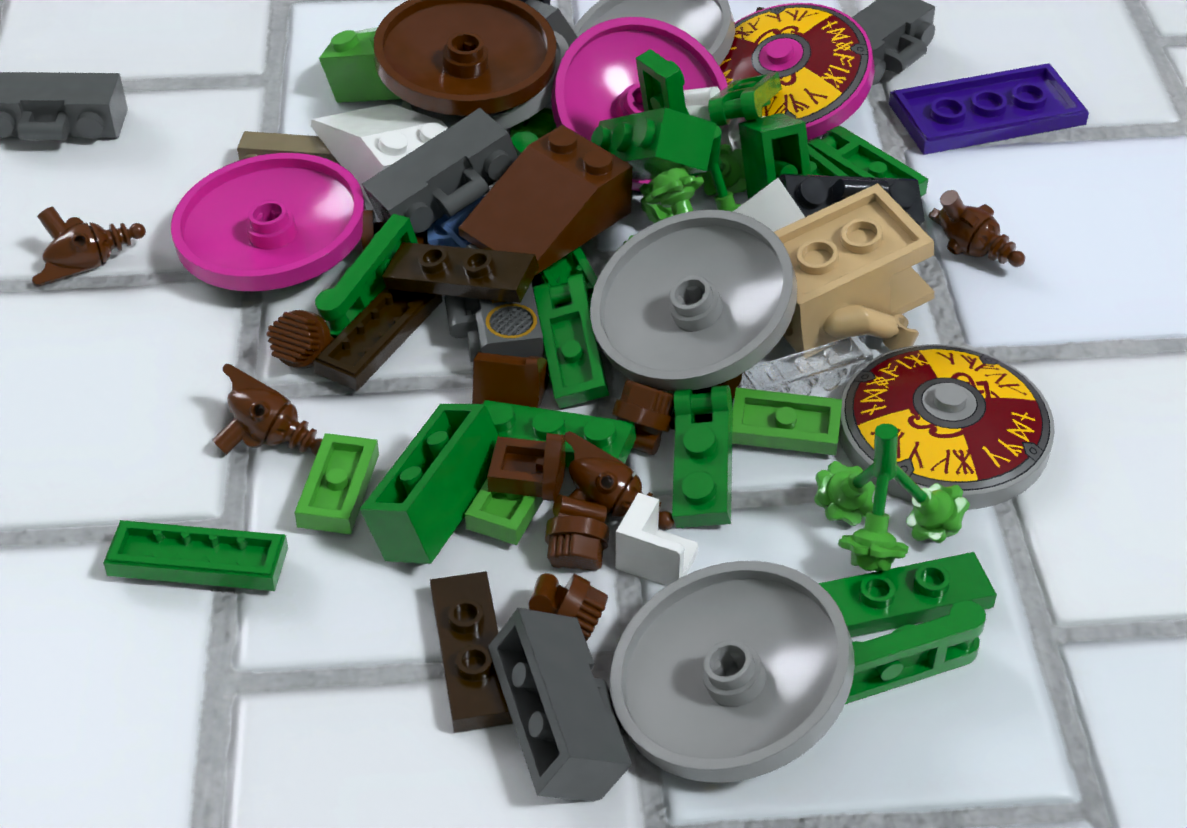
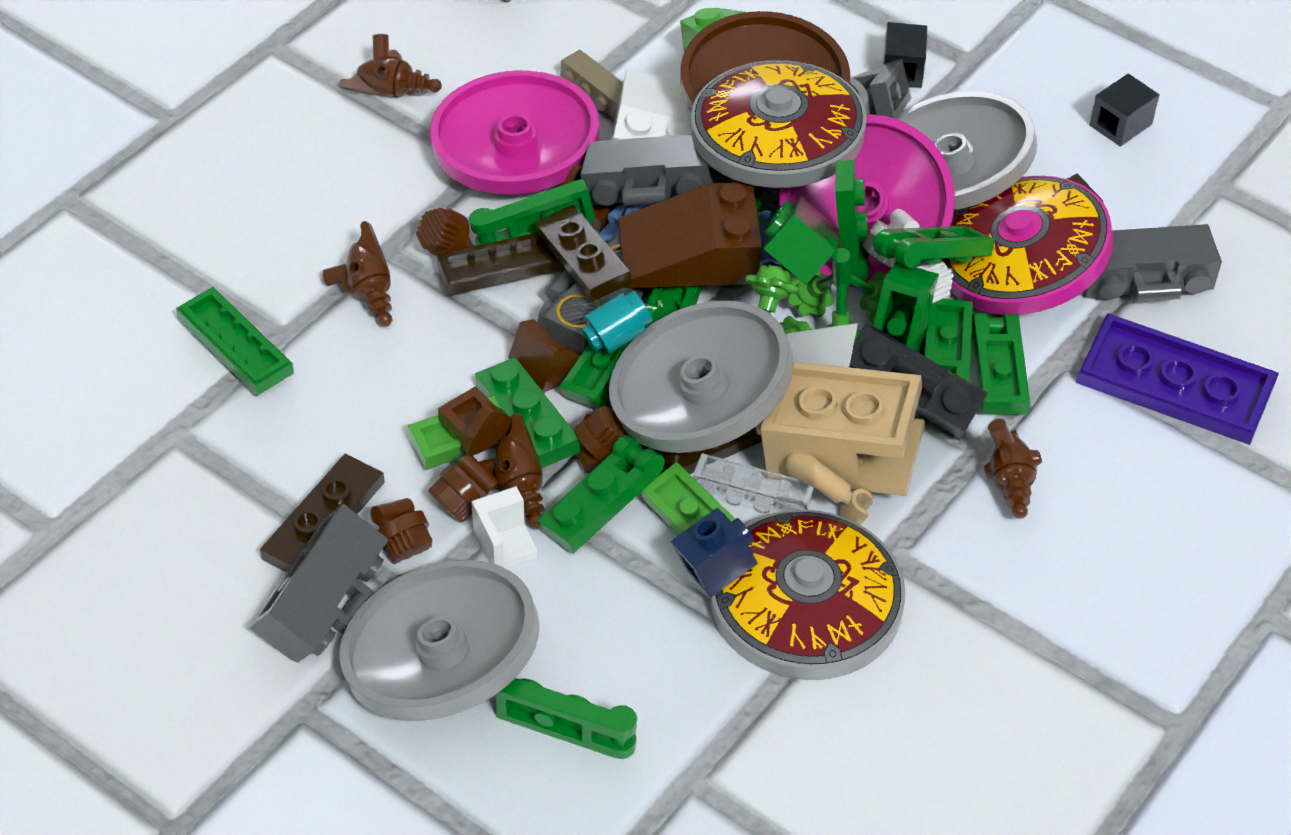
camera: 40 degrees right, 5 degrees up
(337, 483) = (362, 350): bright green plate -> none
(432, 484) = (404, 389): green brick -> none
(533, 69) = (778, 123): none -> dish
(567, 303) = (616, 322): none -> teal brick
(848, 496) = (667, 587): bright green plant -> none
(854, 423) = (715, 551): none -> dark blue brick
(910, 593) = (623, 681): green plate -> none

